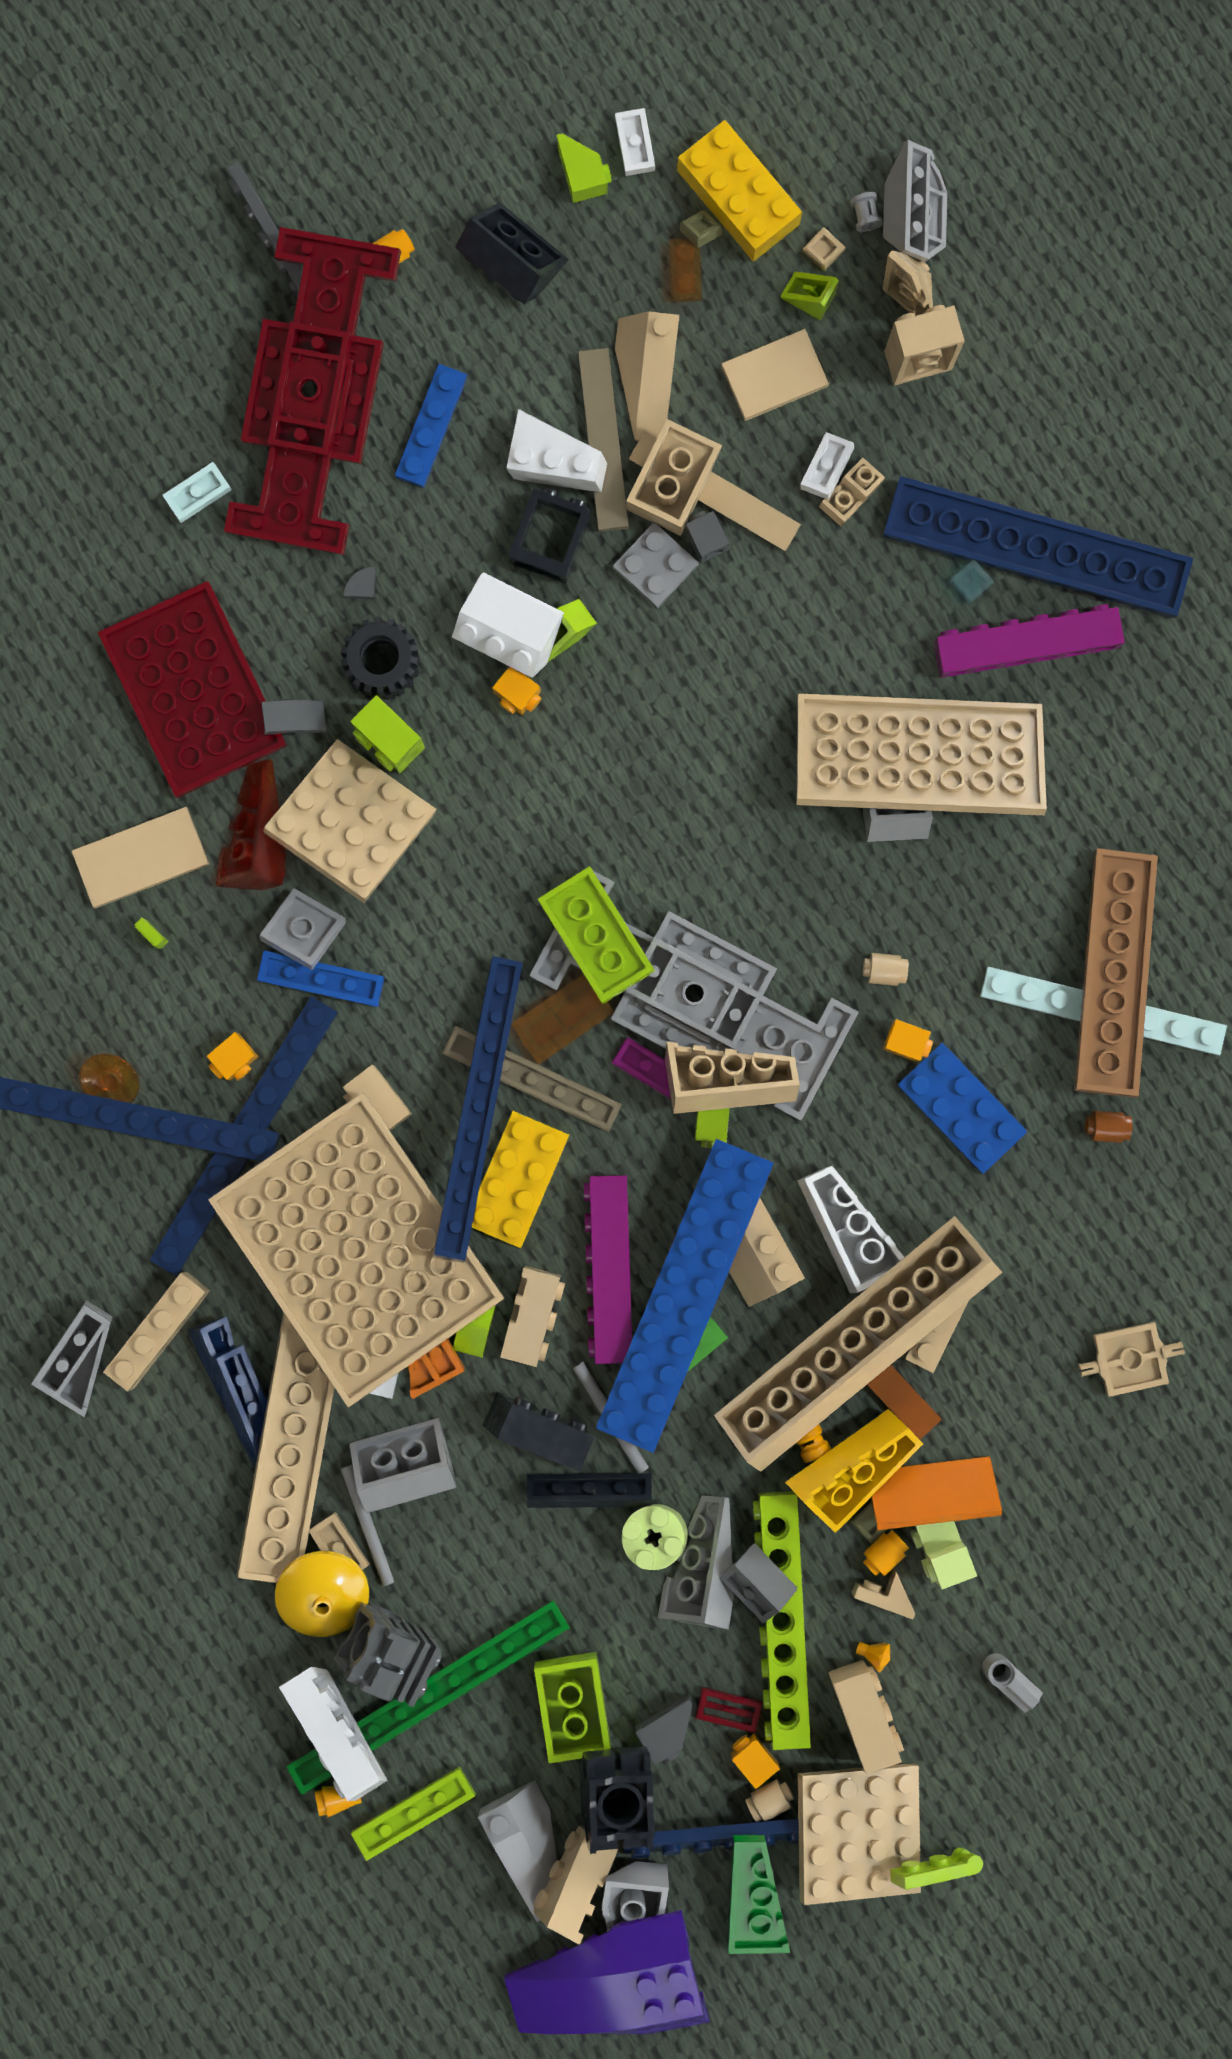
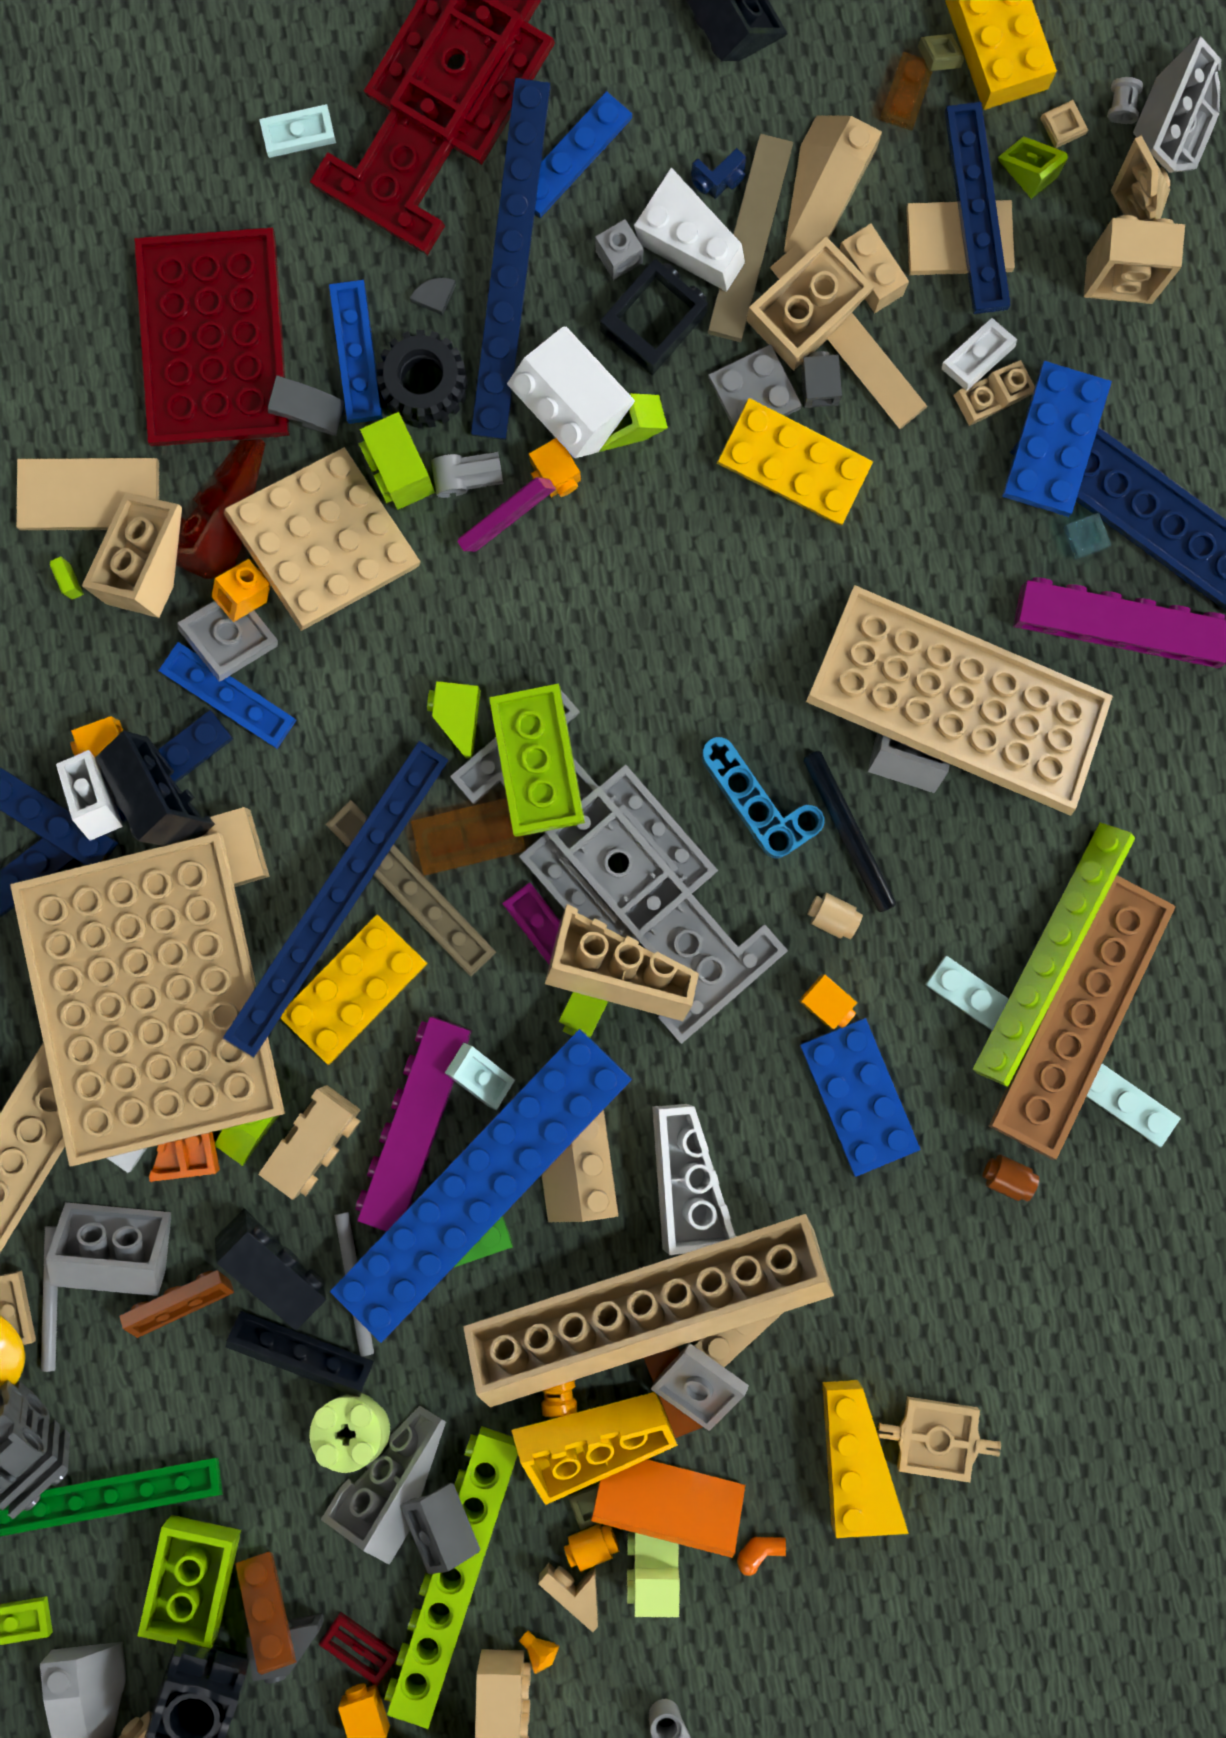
camera: 25 degrees right, 0 degrees up
(205, 892) = (137, 556): none -> tan slope
(244, 1102) = (88, 795): none -> white brick
(290, 1082) = (147, 793): none -> black wedge
(300, 888) = (241, 590): none -> light orange brick
(316, 656) = (356, 351): none -> blue plate
(415, 533) = (510, 258): none -> dark blue plate
(442, 724) = (459, 474): none -> light grey piece
(473, 1488) = (176, 1303): none -> dark orange plate
(493, 744) = (506, 514): none -> magenta tile
(500, 491) = (619, 249): none -> light grey brick
(514, 922) = (456, 712): none -> lime slope
(564, 396) = (725, 175): none -> dark blue bracket
(643, 1706) = (265, 1613): none -> dark orange plate
(648, 1209) = (479, 1076): none -> light aqua plate
(711, 611) = (794, 462): none -> yellow plate
(715, 425) = (877, 264): none -> tan brick
(780, 347) = (977, 208): none -> dark blue plate
(782, 895) = (756, 795): none -> dark azure beam
(871, 896) = (849, 831): none -> black axle
(916, 512) = (1056, 438): none -> blue plate
(923, 1389) = (699, 1387): none -> light grey plate
(1019, 1506) = (756, 1551): none -> orange arm
(1074, 931) = (1053, 954): none -> lime plate
(1077, 1411) = (858, 1475): none -> yellow wedge

